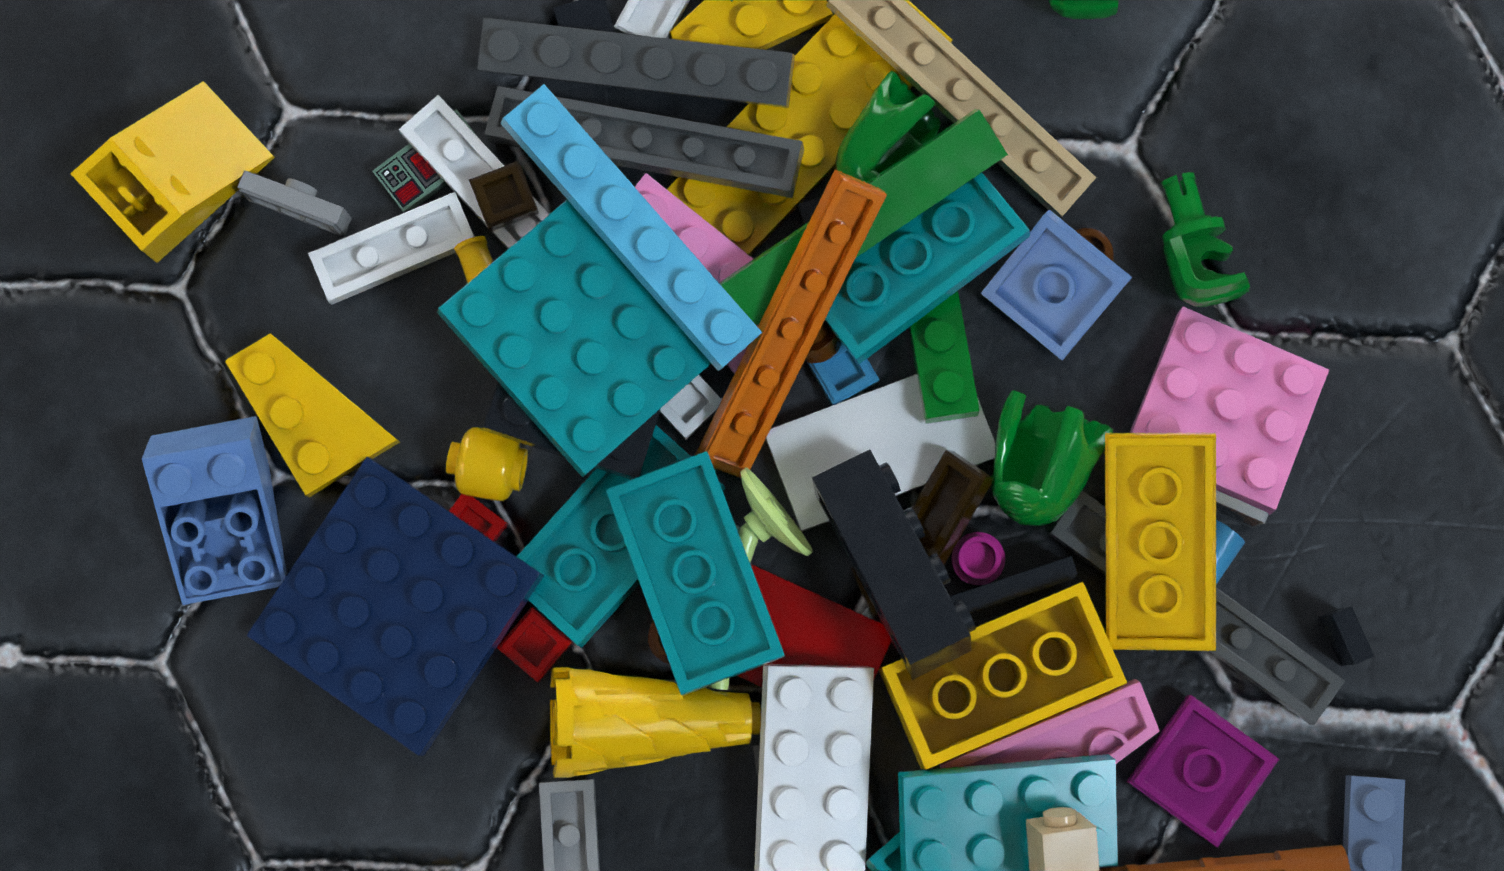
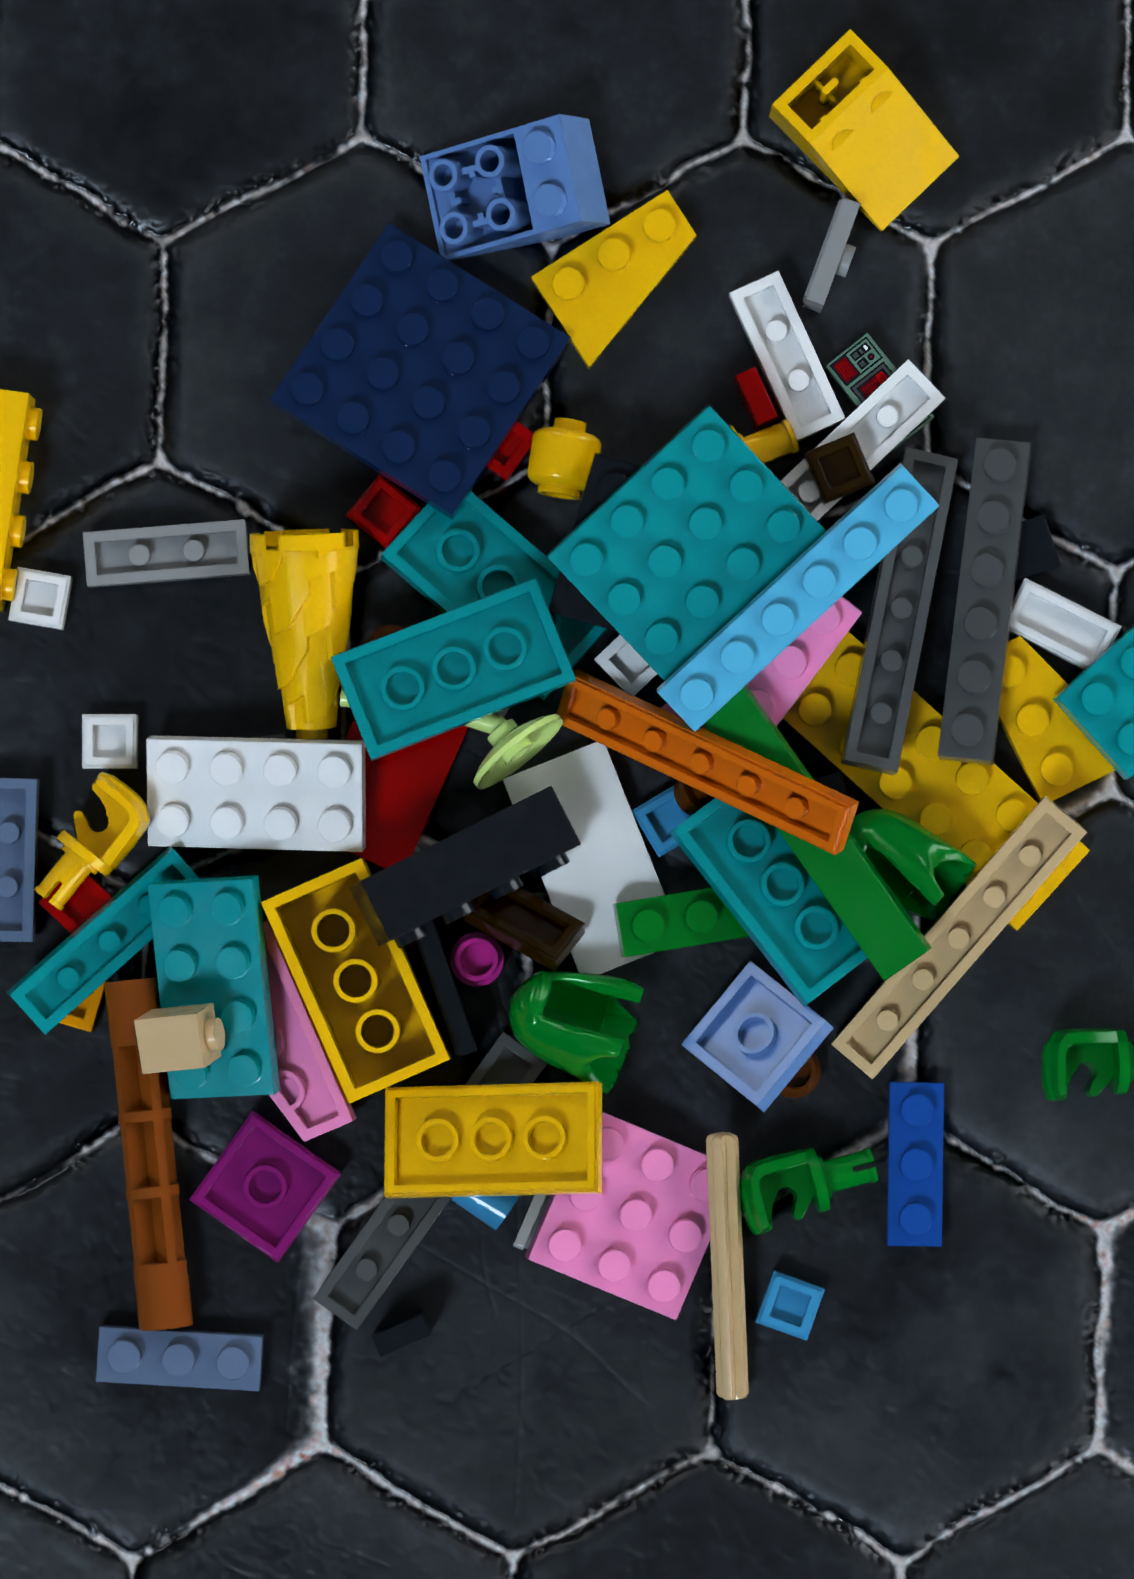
camera: 90 degrees right, 5 degrees up
(433, 278) = (755, 398): none -> red tile
(1175, 141) = (915, 1163): none -> blue plate
(1276, 317) = (727, 1265): none -> tan axle
(1311, 262) = (789, 1305): none -> dark azure tile

